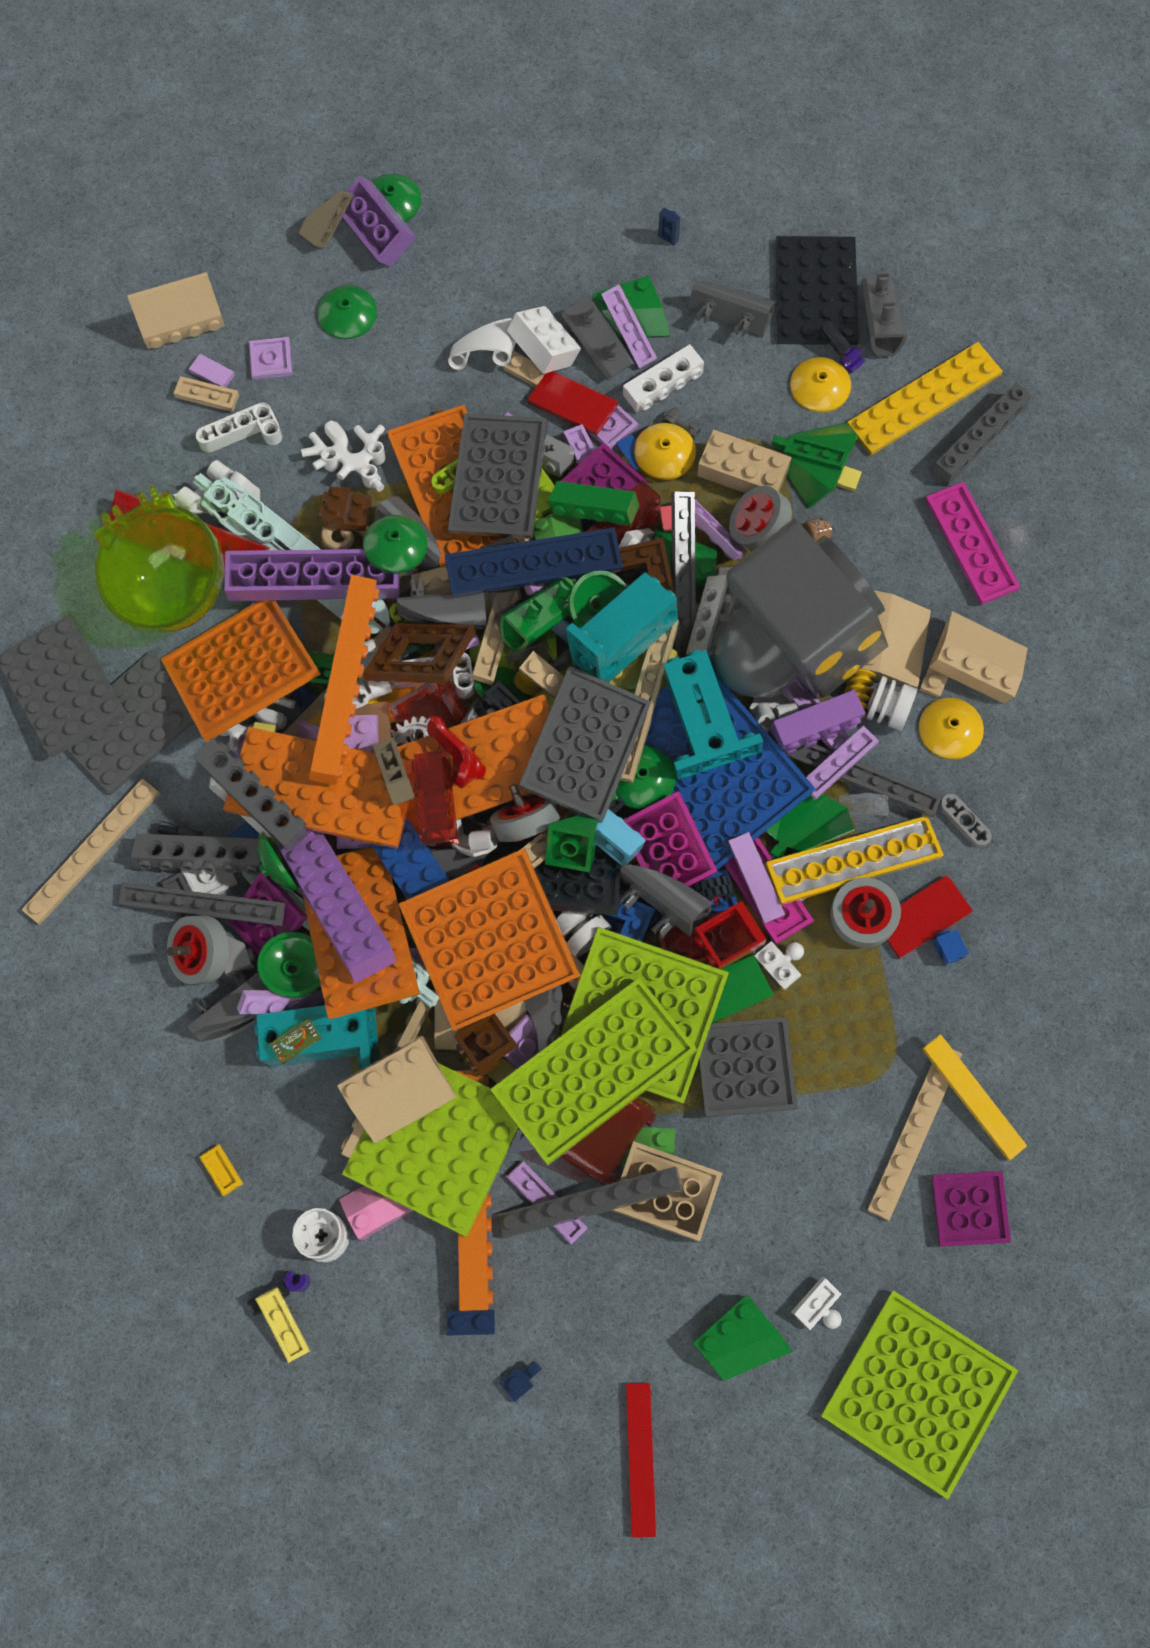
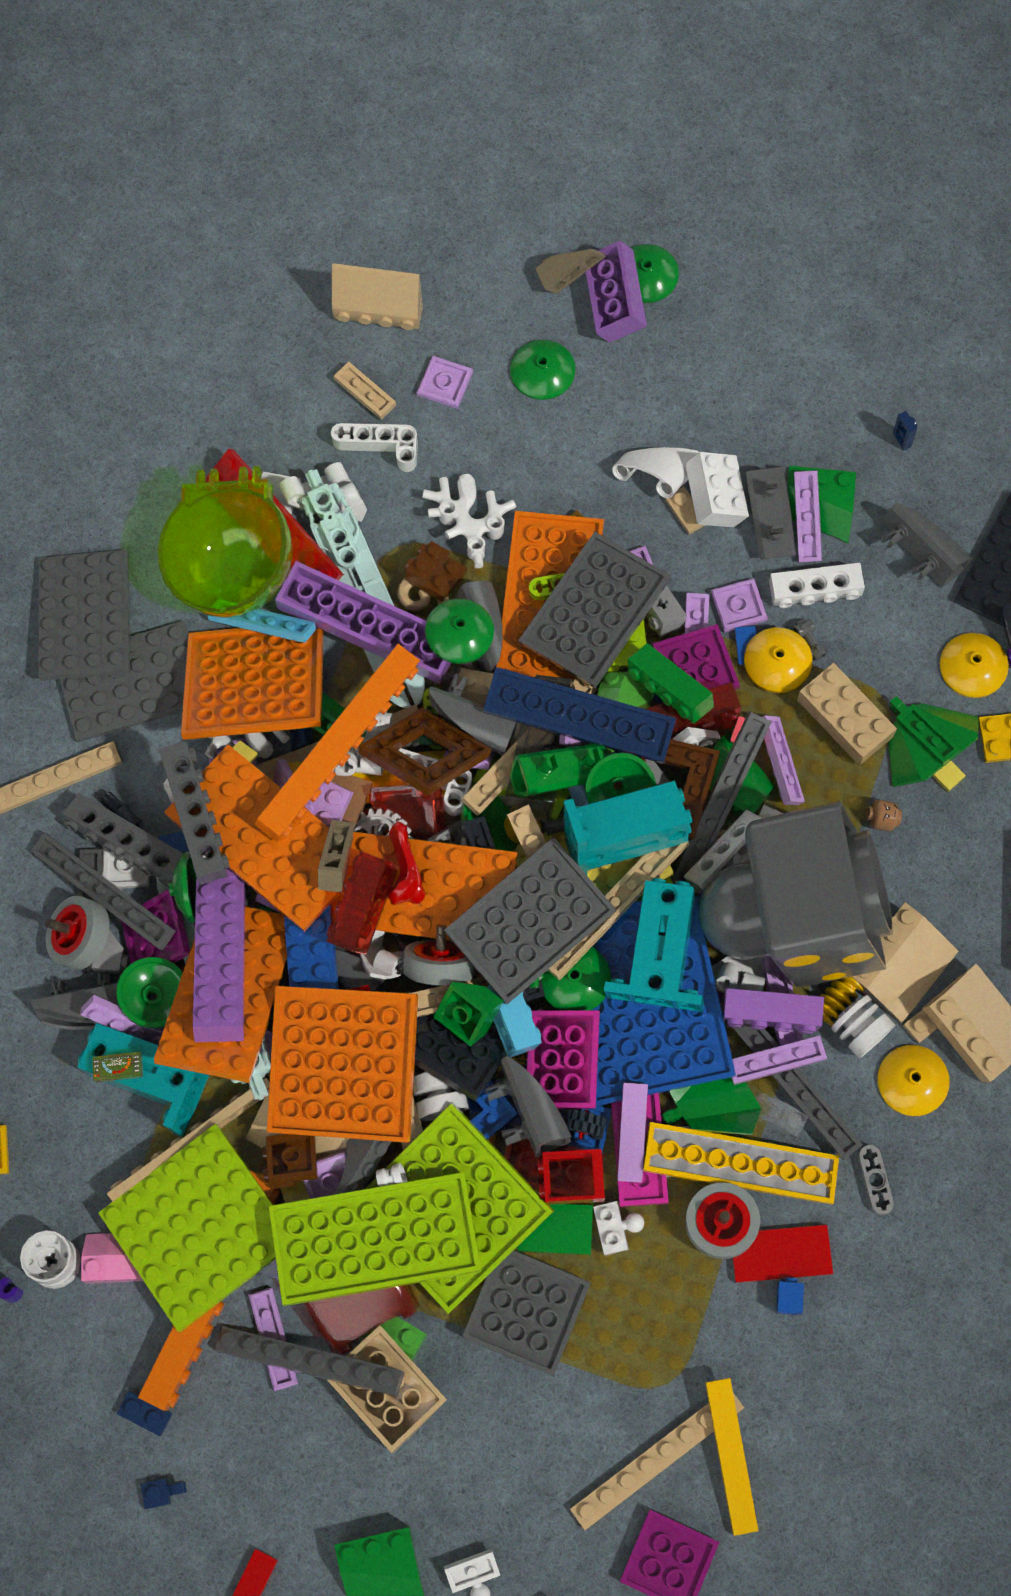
camera: 30 degrees right, 0 degrees up
(211, 371) = (381, 370): lavender tile -> none
(227, 616) = (271, 624): none -> medium azure plate
(397, 1089) = (184, 1160): tan slope -> none
(572, 402) = (713, 566): red tile -> none
(578, 1013) = (391, 1176): none -> white wheel
(759, 516) = (831, 775): wheel -> none

